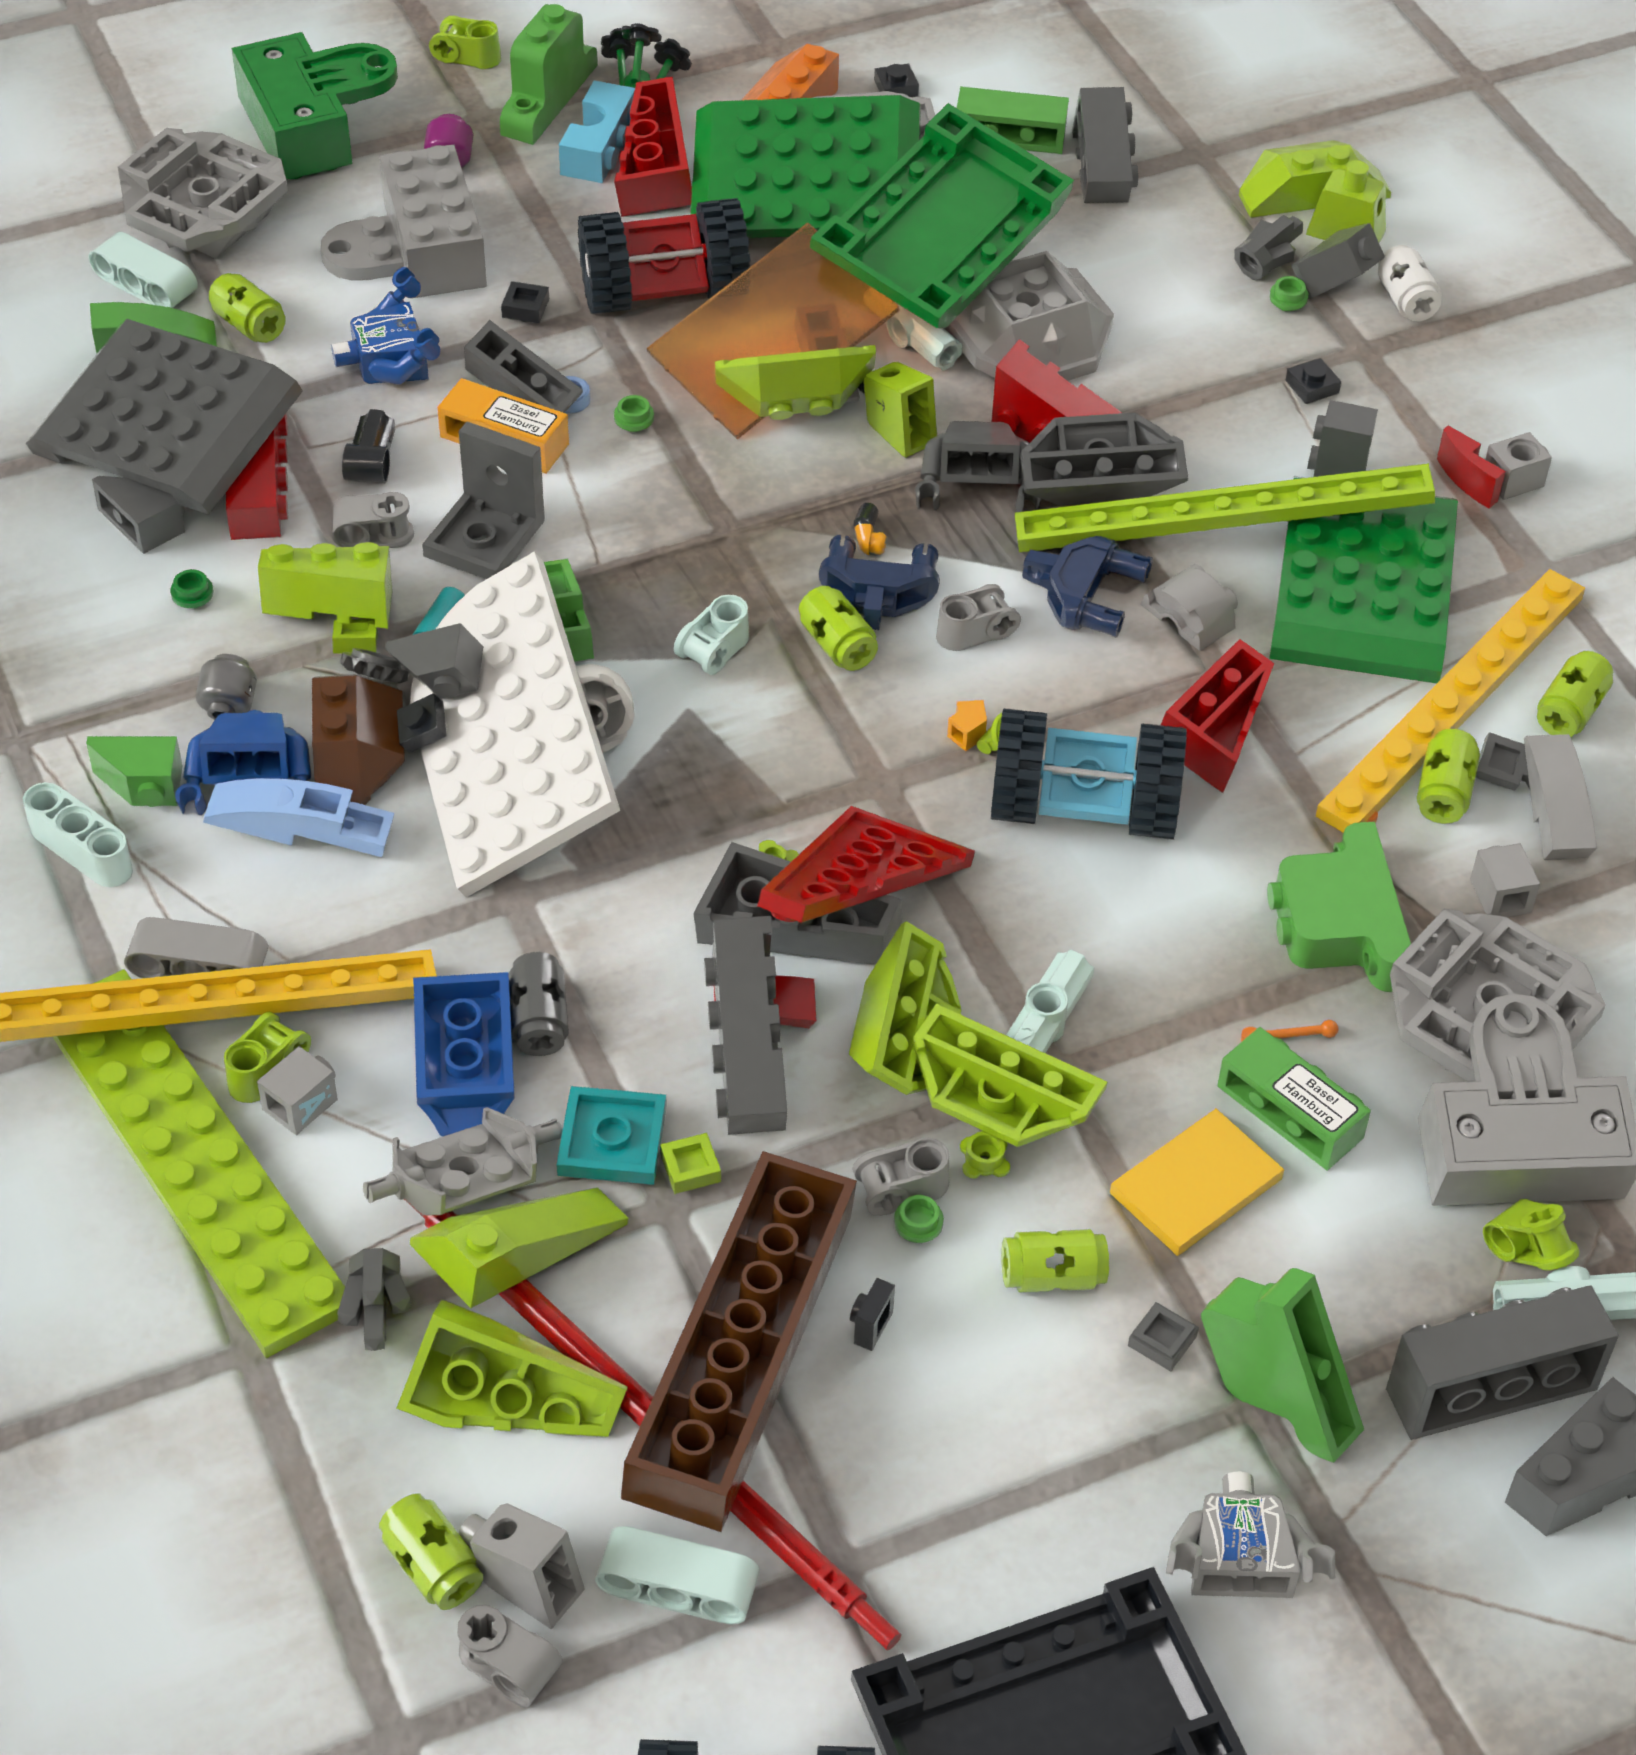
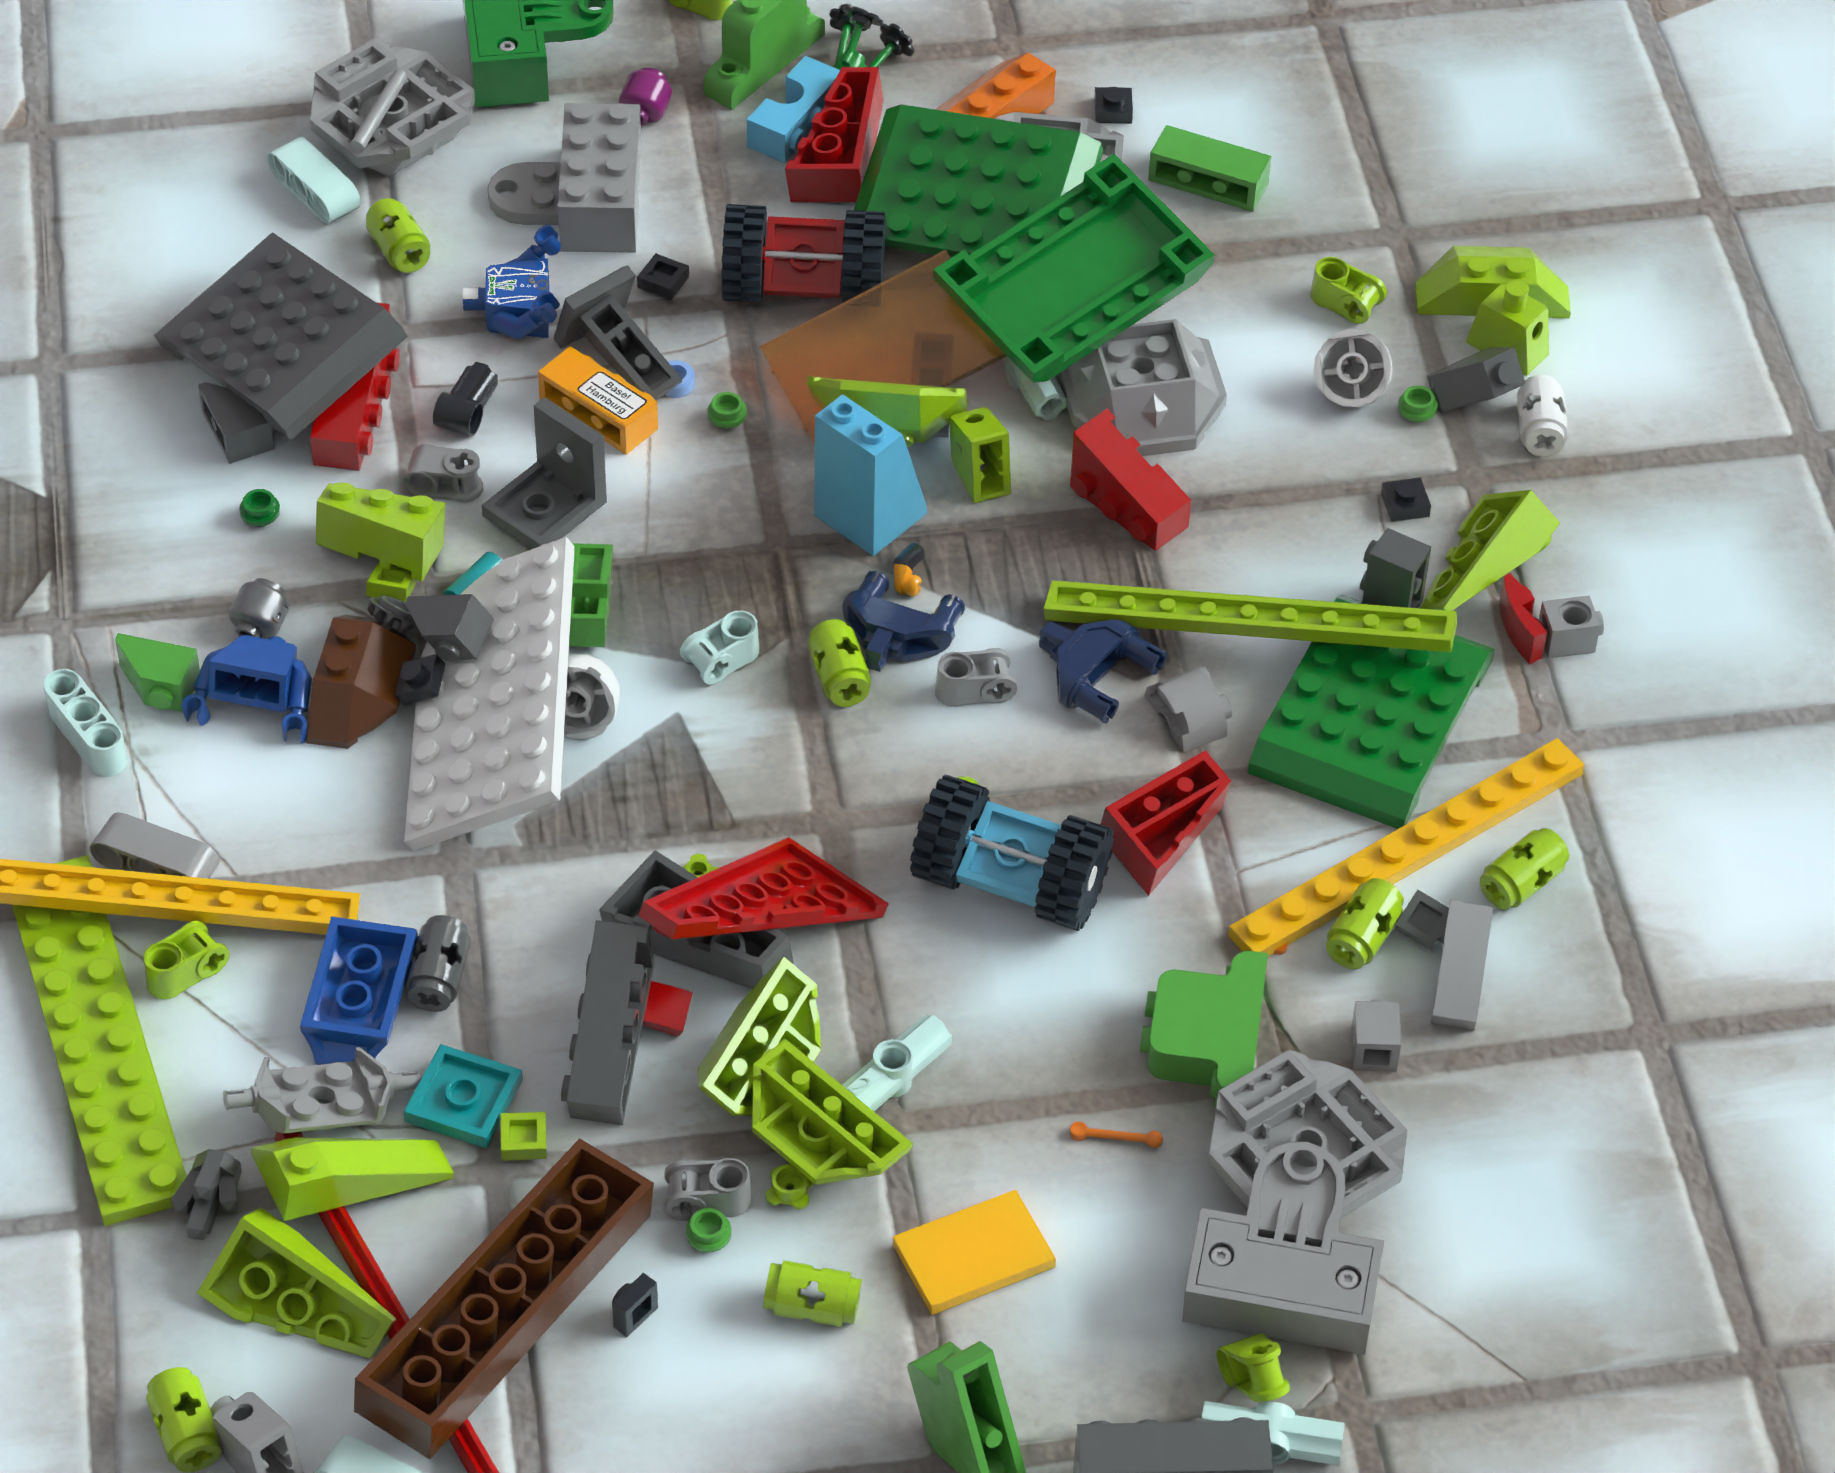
camera: 15 degrees right, 0 degrees up
(109, 315) = (319, 241): bright green slope -> none
(193, 193) = (378, 111): none -> light grey bar
(298, 807) = (287, 739): light blue slope -> none
(298, 1089) = (203, 996): light grey brick -> none
(452, 356) = (569, 325): none -> dark grey tile
(804, 443) = (864, 477): none -> medium azure slope
(967, 723) = (925, 778): light orange piece -> none
(973, 455) = (1035, 515): dark grey torso -> none
(1102, 460) = (1148, 544): dark grey wedge -> none
(1105, 145) = (1289, 213): dark grey wedge -> none
(1163, 1336) = (886, 1382): dark grey tile -> none
(1177, 204) = (1344, 289): none -> lime piece
(1224, 268) = (1353, 368): none -> white cylinder
(1268, 246) = (1416, 347): dark grey rock -> none
(1294, 1098) = (1091, 1195): bright green brick -> none
(1414, 402) = (1495, 539): none -> lime wedge

